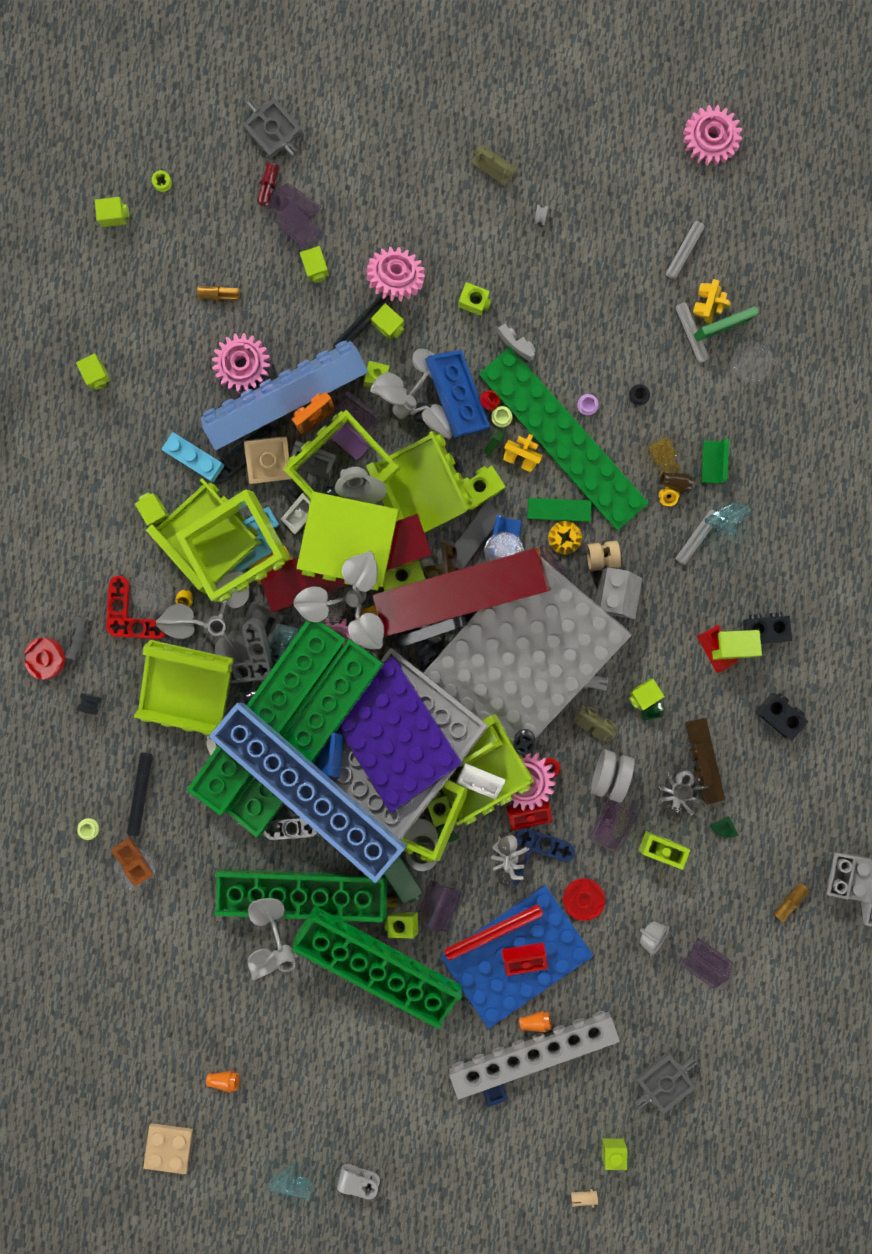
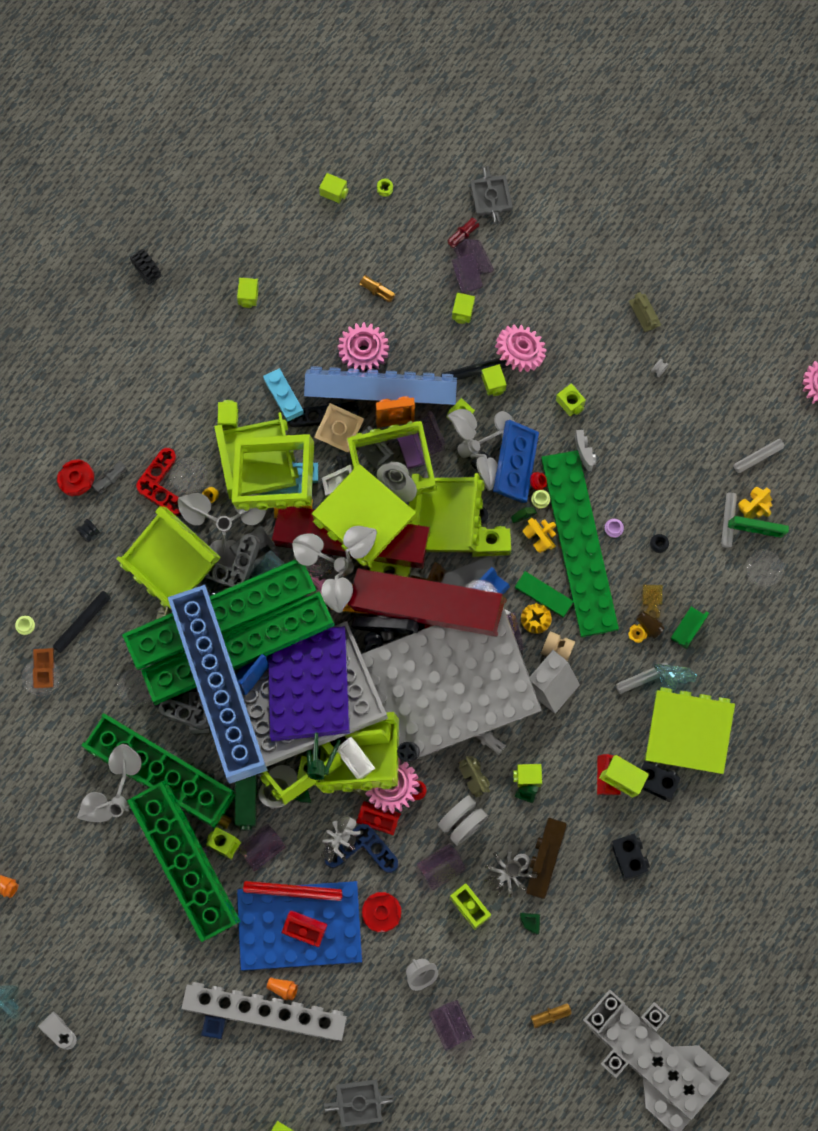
camera: 30 degrees right, 15 degrees down
(452, 816) = (316, 768): none -> dark green plant
(773, 564) = (690, 731): none -> lime panel

